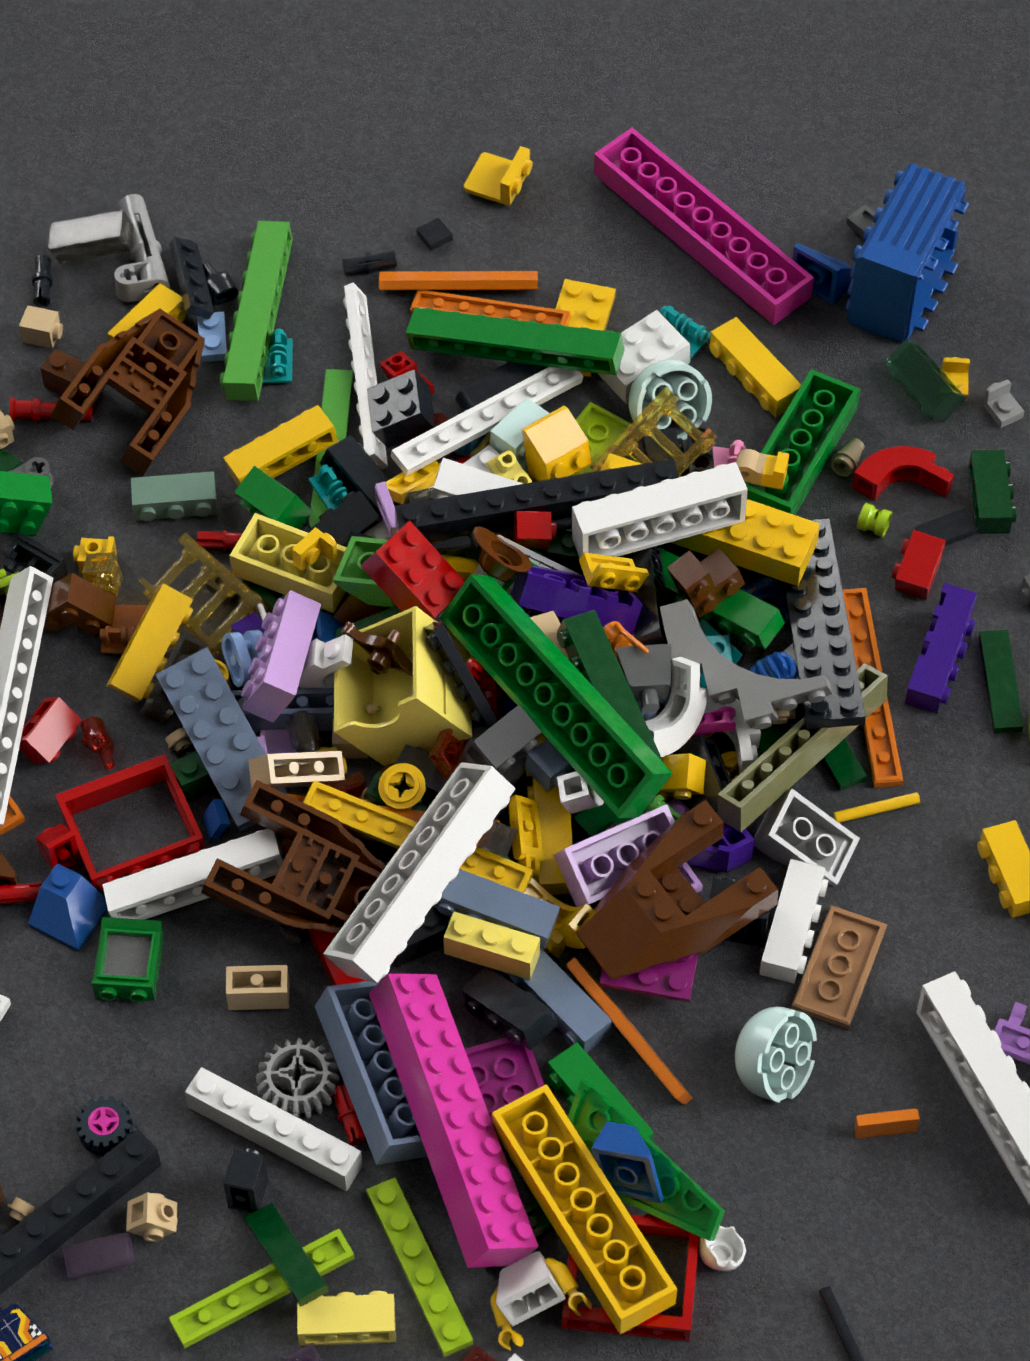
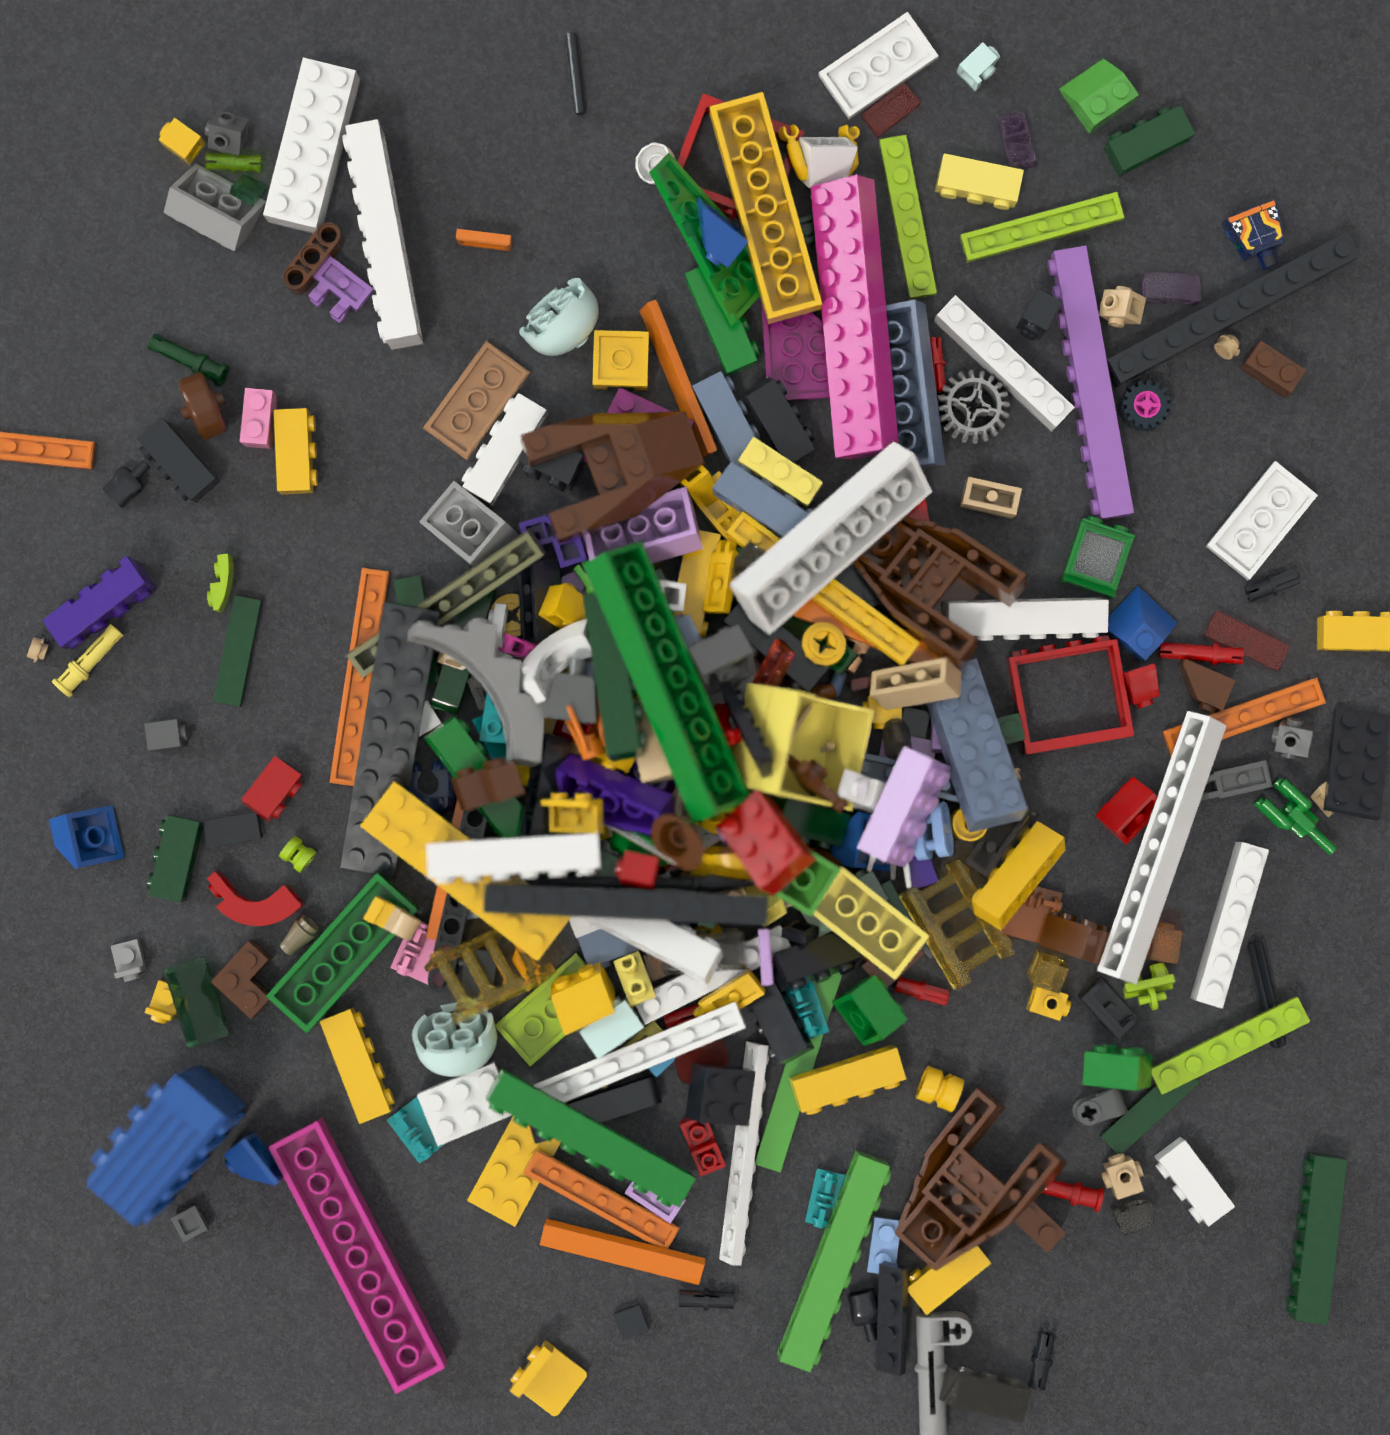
camera: 165 degrees left, 30 degrees up
(40, 327) = (1053, 1296): tan brick -> none
(98, 740) = (1082, 791): clear red piece -> none
(172, 1137) = (1091, 384): none -> medium lavender brick
(174, 496) = (961, 1051): sand green brick -> none
(187, 460) = (938, 1088): none -> yellow wheel
(215, 819) = (993, 680): blue tile -> none
(286, 1254) = (1017, 243): dark green tile -> none
(311, 547) = (854, 913): yellow bracket -> none
(697, 1032) = (620, 359): none -> yellow panel
(776, 666) = (450, 685): blue gear -> none
(876, 807) = (394, 548): yellow bar -> none
(887, 406) = (239, 979): none -> reddish brown brick
(942, 648) = (284, 688): dark purple wedge -> none

